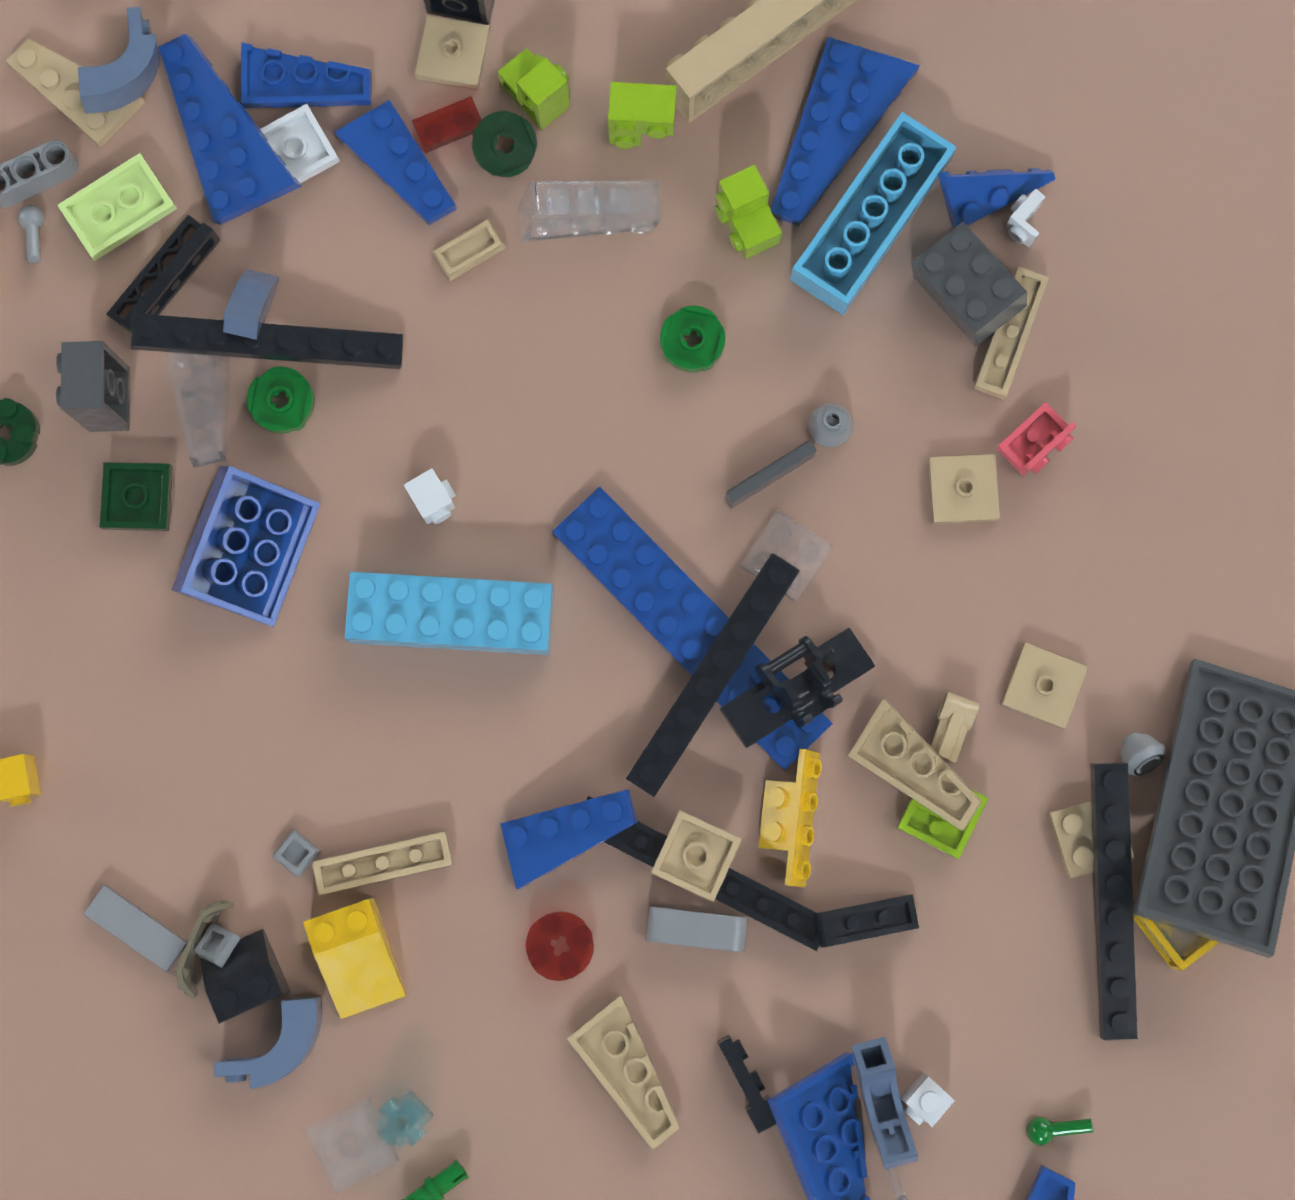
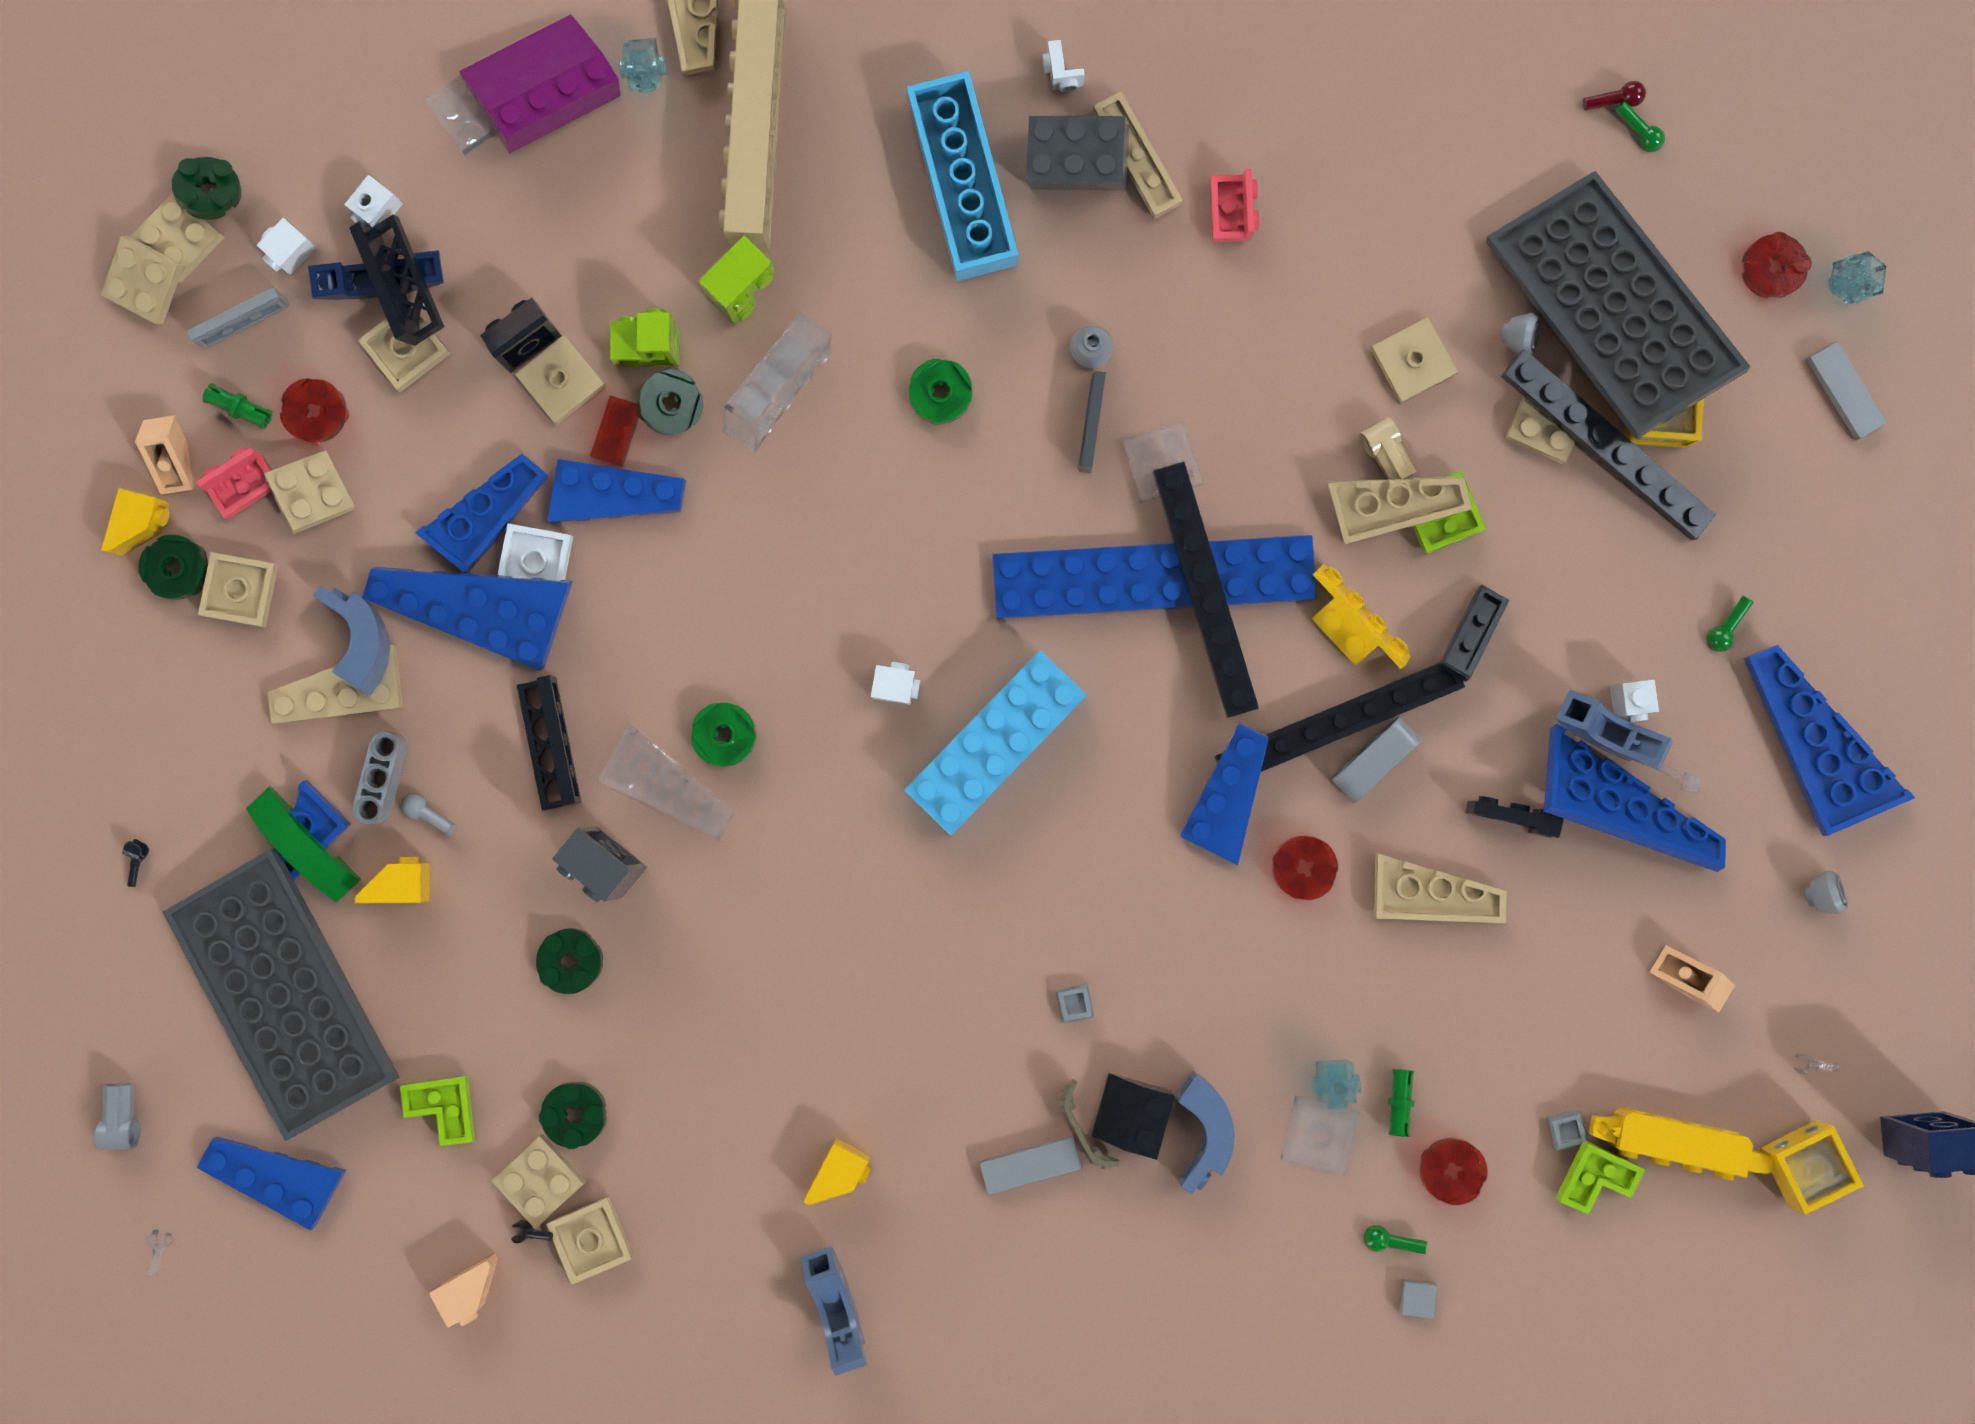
camera: 55 degrees left, 5 degrees up
(117, 207) = (464, 733): yellowish green plate -> none
(136, 496) = (705, 902): dark green plate -> none
(216, 945) = (1094, 1115): light grey tile -> none
(246, 545) = (813, 851): blue slope -> none
(250, 303) = (634, 694): sand blue slope -> none
(273, 342) = (672, 707): black plate -> none
(355, 957) = (1188, 1022): yellow slope -> none
(382, 863) = (1136, 946): tan plate -> none
(468, 249) = (727, 498): tan tile -> none
(696, 856) = (1327, 714): tan plate -> none
(745, 209) = (880, 268): lime brick -> none
(803, 695) = (1276, 538): black piece -> none
(841, 111) = (859, 129): blue wing -> none
(964, 489) = (1222, 291): tan plate -> none
(980, 194) = (1016, 82): blue wing -> none

